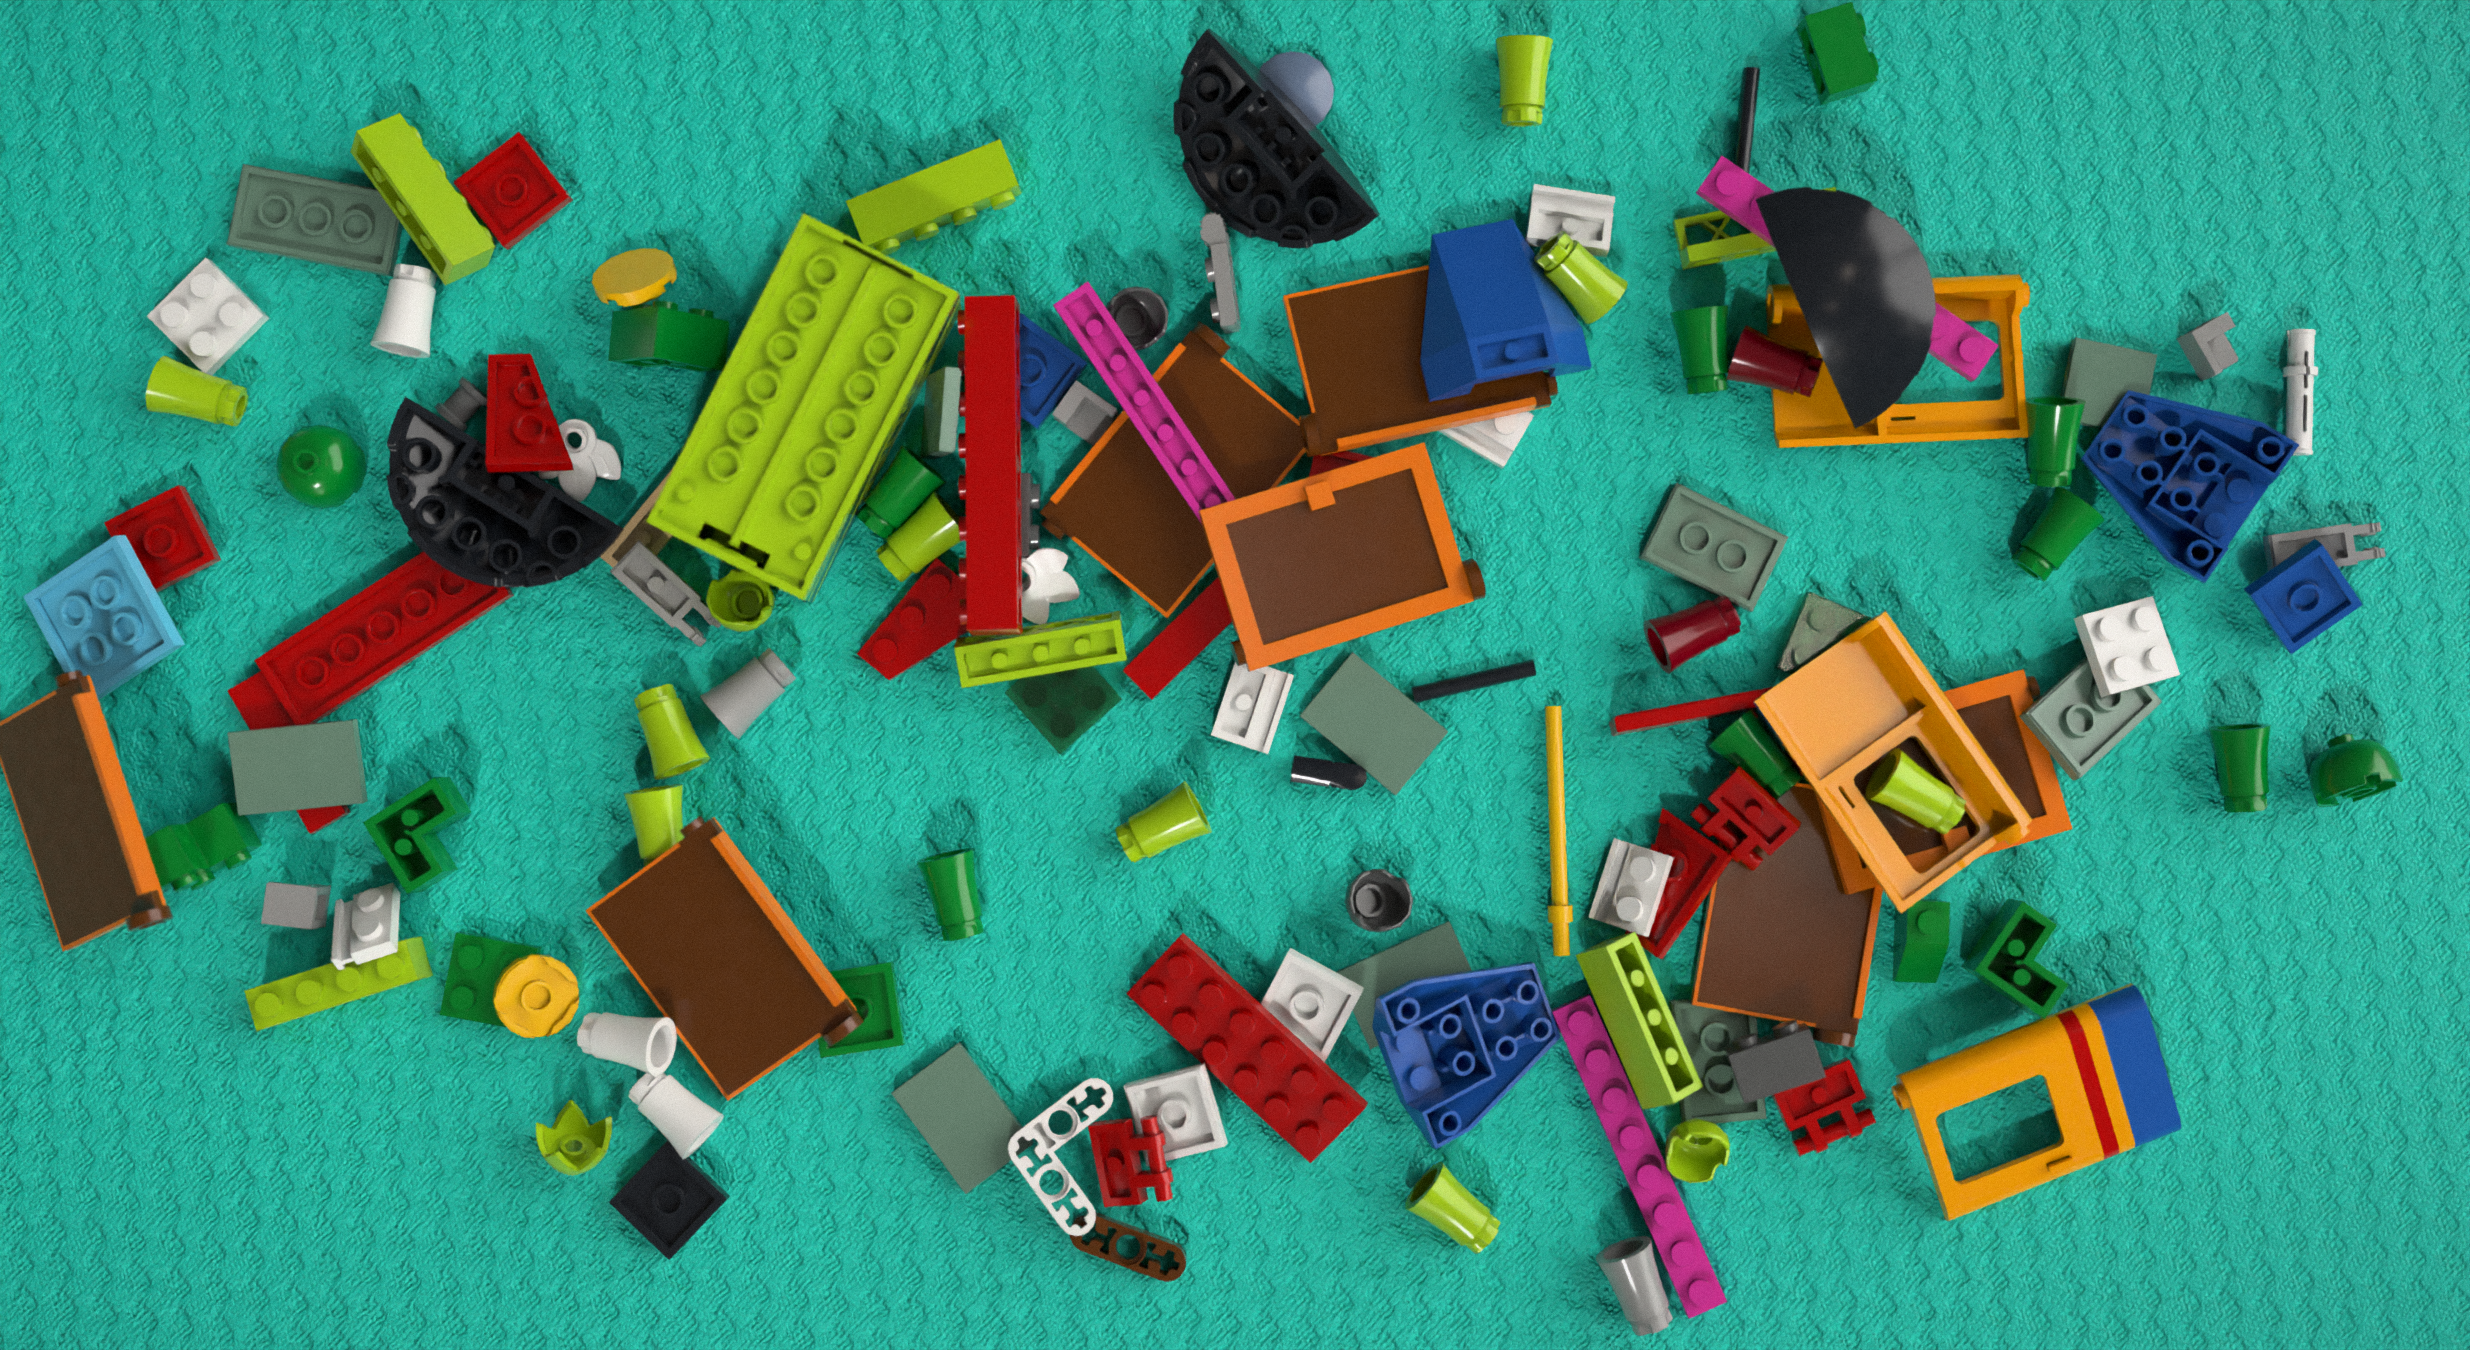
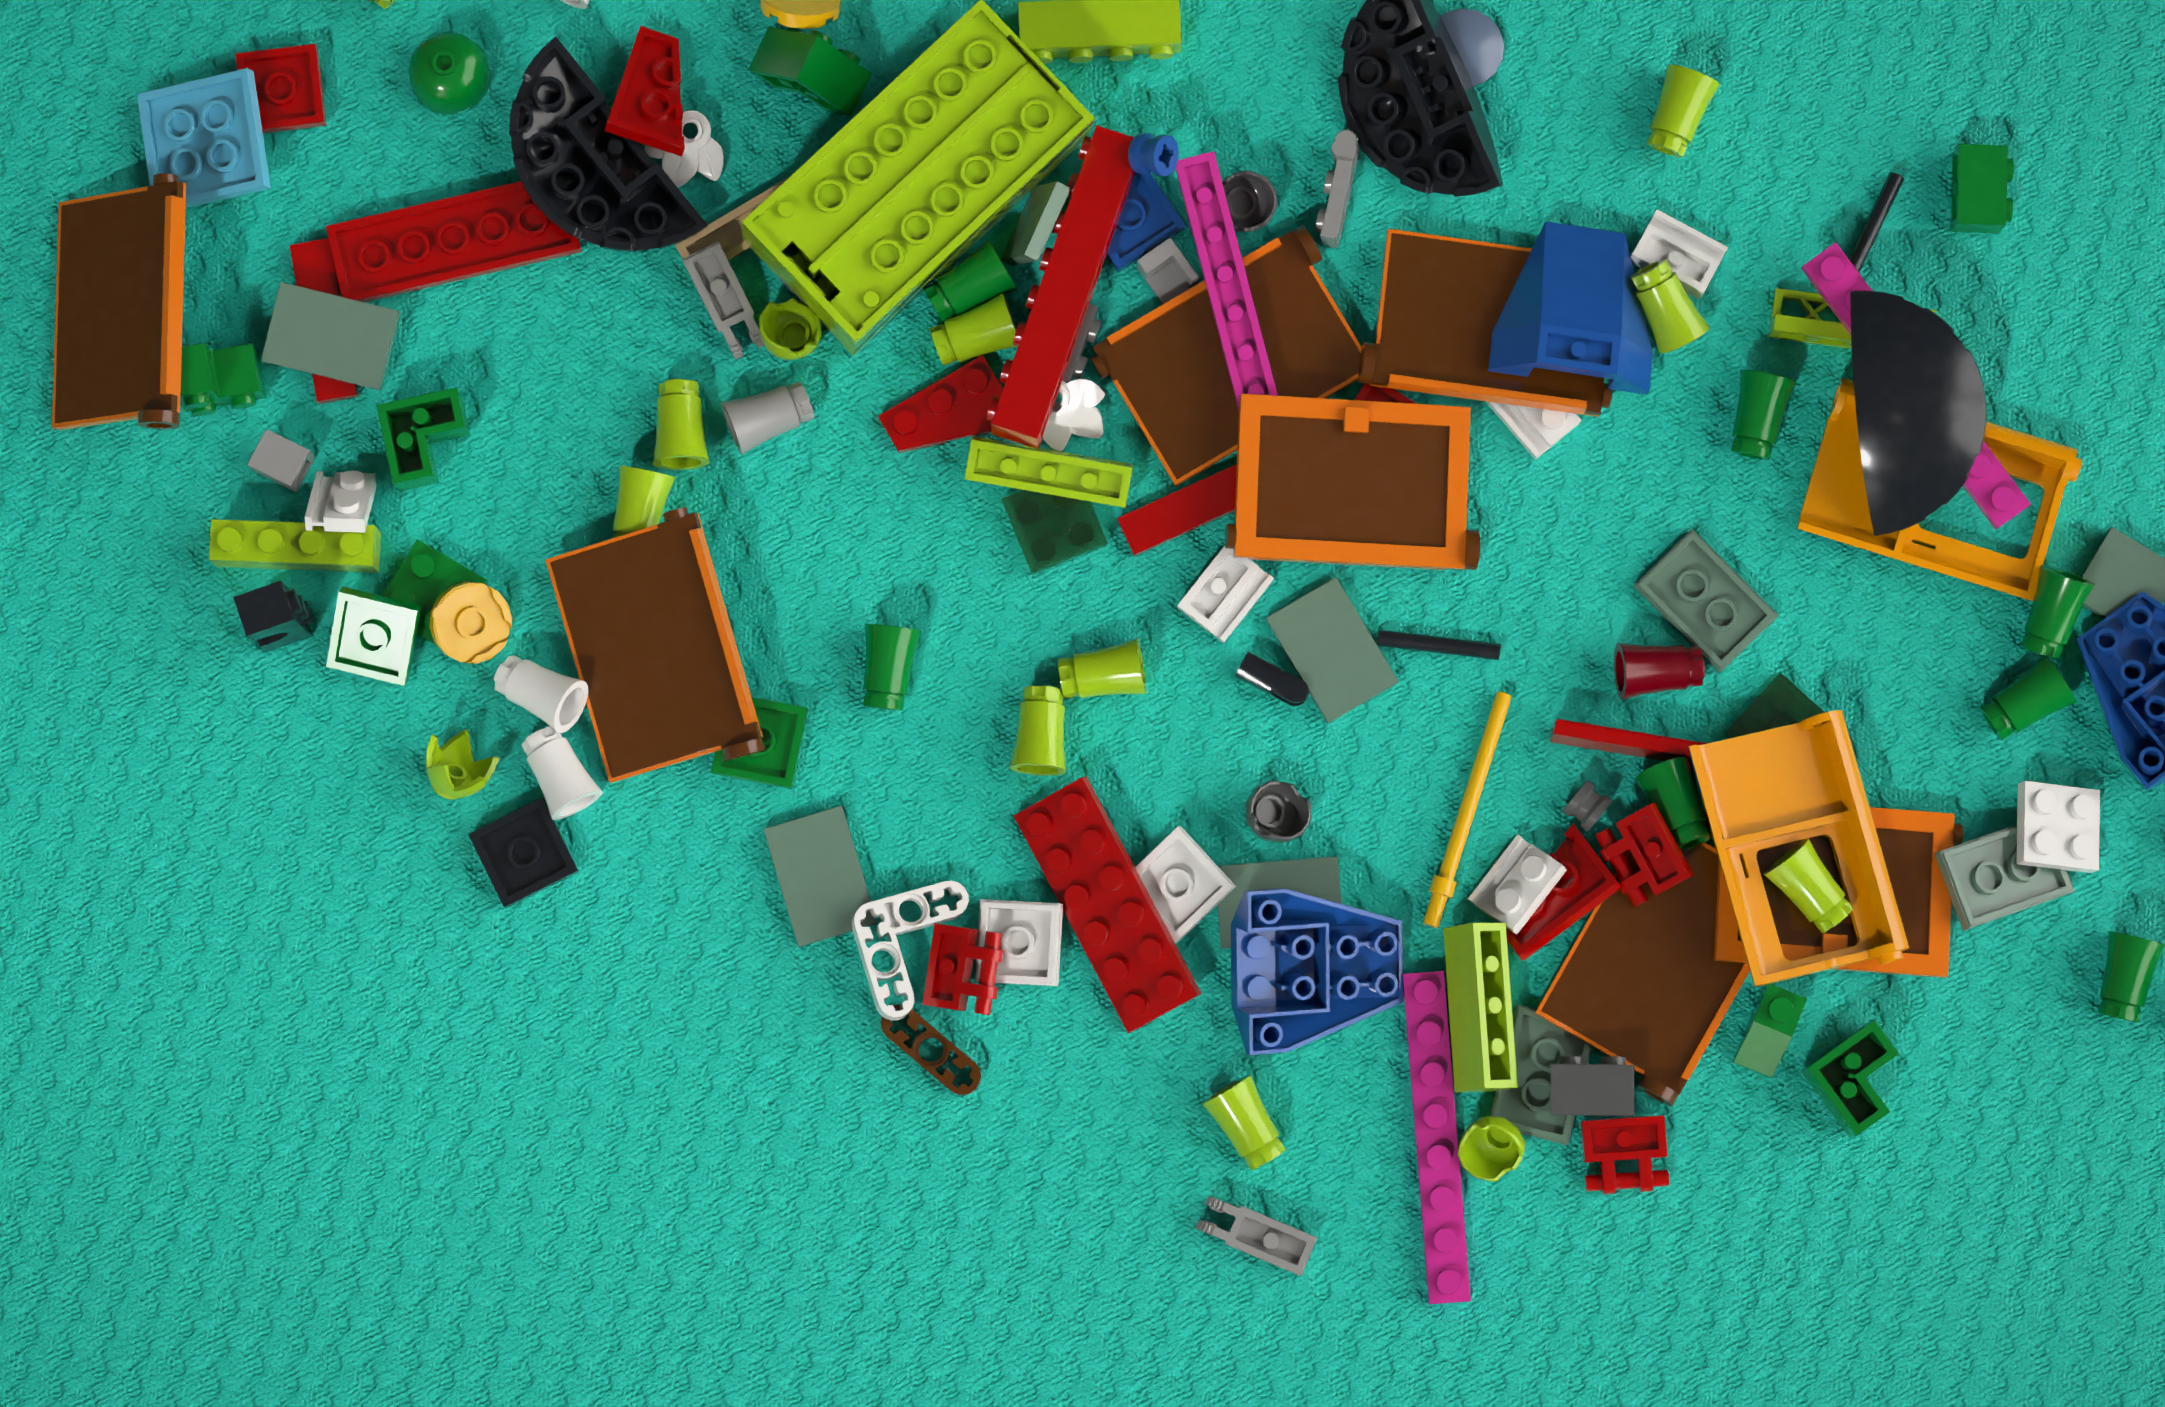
camera: 20 degrees right, 5 degrees down
(337, 1066) = (274, 616): none -> black arch
(446, 1044) = (373, 636): none -> plate
(462, 404) = (600, 61): dark grey bush -> none
(1030, 305) = (1153, 154): none -> blue wheel
(1123, 905) = (1040, 733): none -> lime plant
(1505, 1312) = (1261, 1237): none -> light grey hinge
(1637, 1284) = (1392, 1253): light grey plant -> none
(1671, 787) = (1587, 805): none -> dark grey wheel
(1773, 364) = (1818, 449): dark red plant -> none
(2101, 1083) = (1890, 1226): light orange piece -> none

